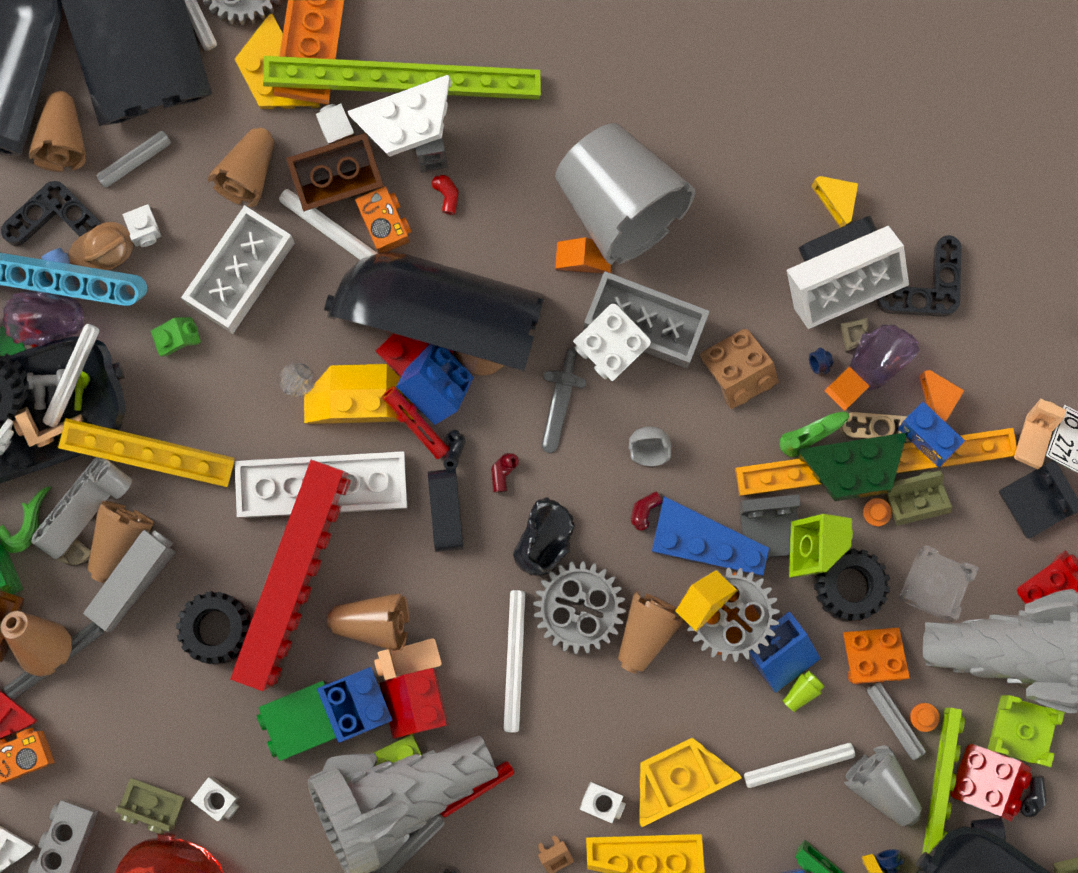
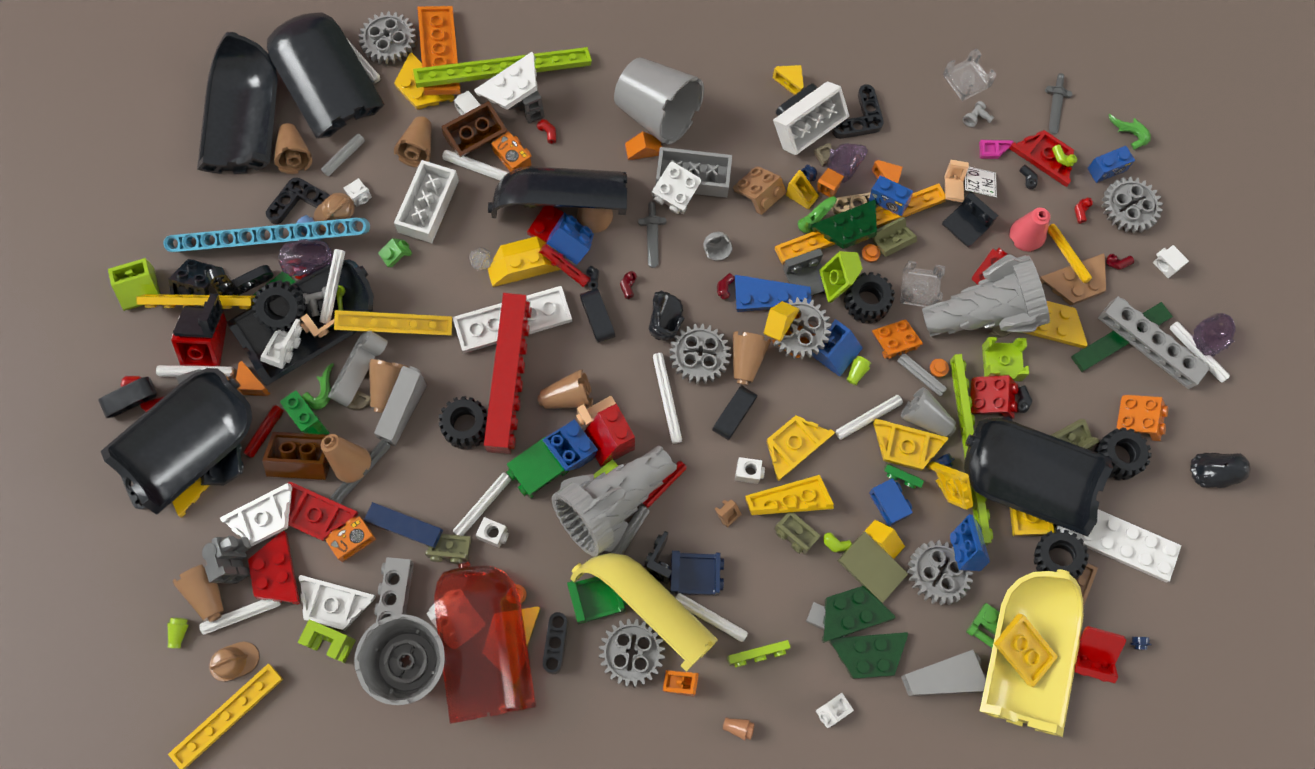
camera: 15 degrees left, 10 degrees down
(95, 757) = (403, 525): none -> dark blue tile
(211, 753) = (483, 503): none -> white axle
(605, 710) = (734, 412): none -> black beam
(802, 389) = (801, 190): none -> yellow slope
(841, 822) = (907, 445): none -> yellow wing

